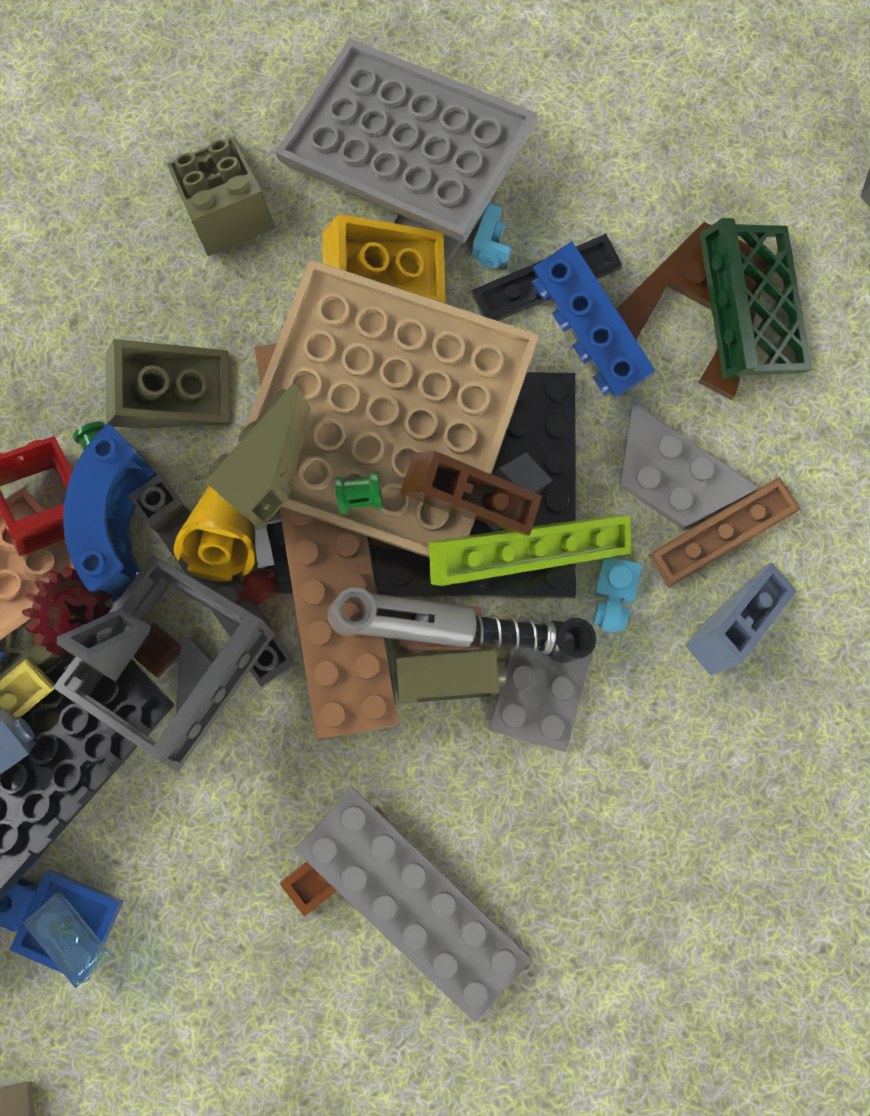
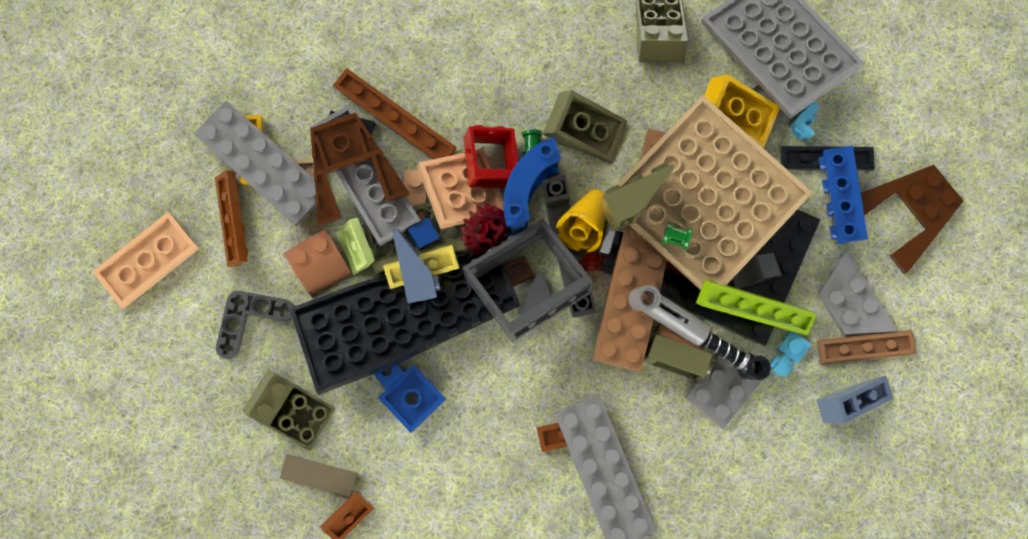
camera: 20 degrees right, 0 degrees up
(67, 939) = (412, 405): clear light blue plate -> none
(106, 642) = (503, 256): dark grey slope -> none
(470, 492) = (737, 262): reddish brown slope -> none
(732, 300) = (930, 217): dark green fence -> none

